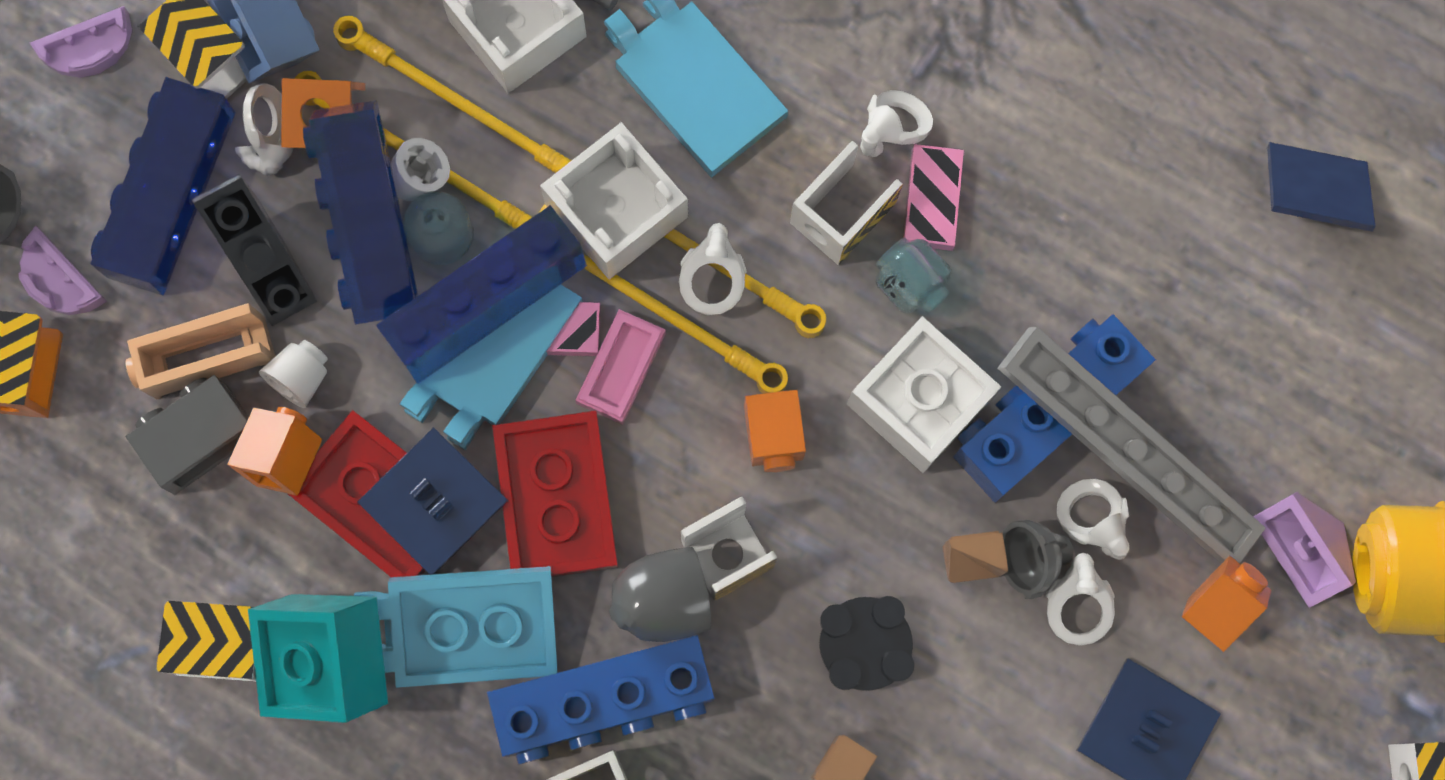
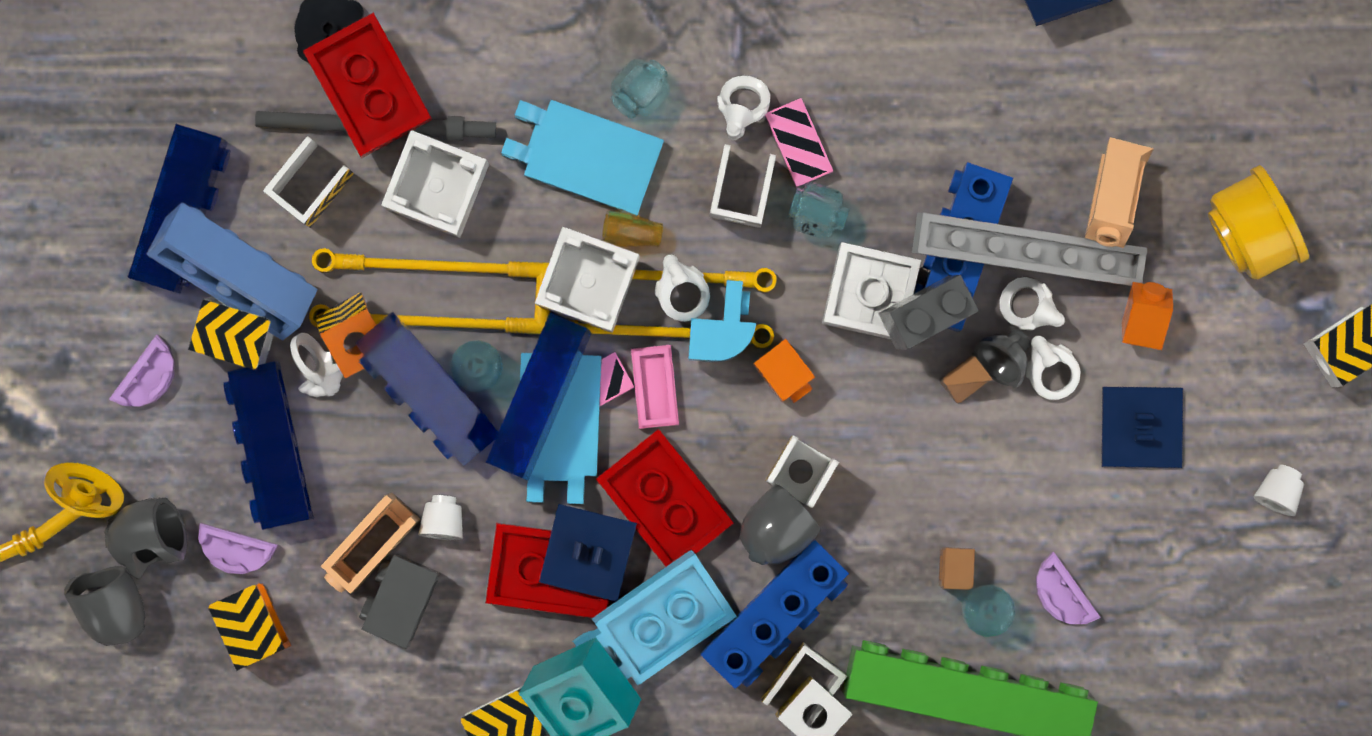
camera: 25 degrees left, 10 degrees up
(255, 249) = (368, 456): black slope -> none
(275, 450) = (465, 579): orange brick -> none
(419, 168) = (442, 335): white hat -> none
(698, 182) = (630, 230): none -> clear yellow cone
(730, 351) = (723, 339): none -> medium azure brick
(794, 42) = (640, 88): none -> clear light blue head
(866, 643) = (926, 478): black piece -> none
(979, 443) = (928, 312): none -> dark grey piece
(1266, 443) = (1117, 192): none -> light nougat window
(1309, 547) = (1183, 241): lavender slope -> none

